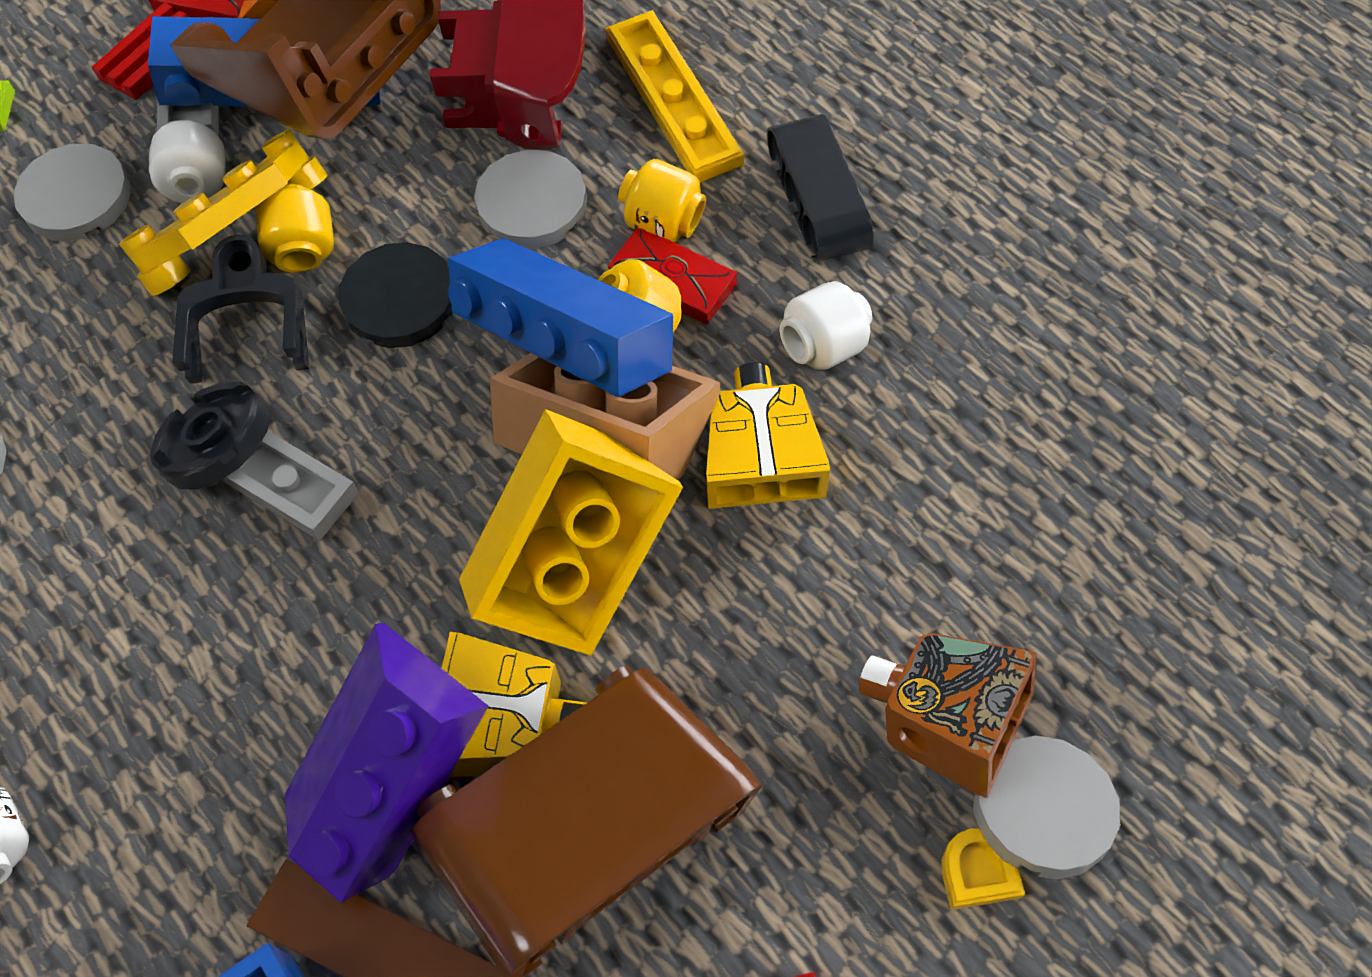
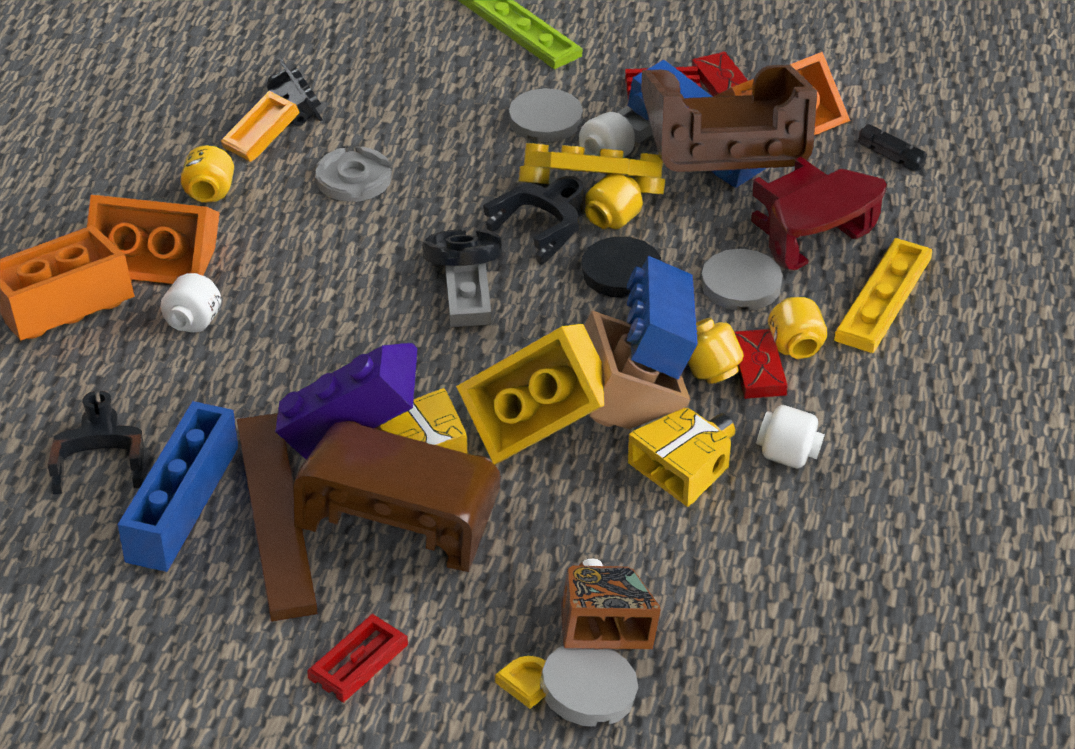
camera: 50 degrees right, 20 degrees down
(822, 187) = (886, 384): black beam -> none

